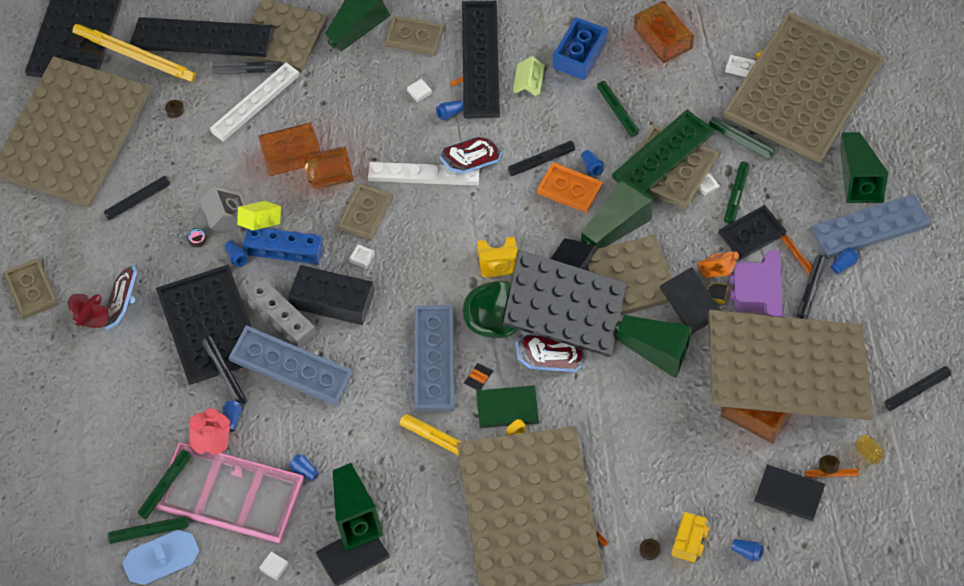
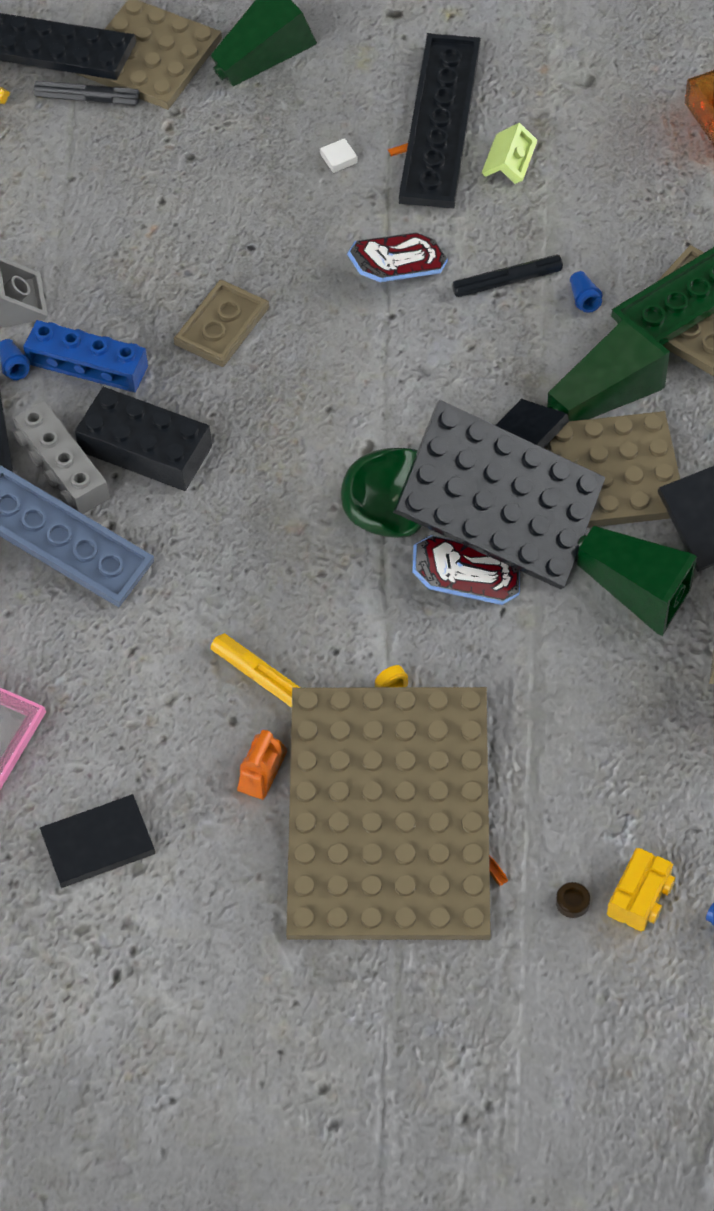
camera: 10 degrees right, 0 degrees up
(254, 102) = (86, 143): white plate -> none
(259, 215) = (56, 306): neon yellow brick -> none
(288, 148) = (125, 216): clear orange brick -> none
(303, 466) = (46, 692): blue cone -> none
(328, 168) = (176, 250): clear orange cylinder -> none
(354, 509) = (108, 770): dark green slope -> none
(362, 256) = (203, 388): white tile -> none
(414, 35) = (347, 75): dark tan tile -> none
(420, 174) = (318, 277): white plate -> none
(434, 358) = (283, 555): sand blue plate -> none
(445, 493) = (261, 765): none -> orange piece
(449, 109) = (378, 187): blue cone -> none
(478, 376) = (349, 593): black piece -> none
(497, 260) = (406, 418): yellow piece -> none
(505, 405) = (379, 641): dark green tile -> none
(569, 187) = (543, 324): orange plate -> none
(580, 48) = (595, 120): blue brick -> none
(618, 109) = (639, 217): dark green axle -> none

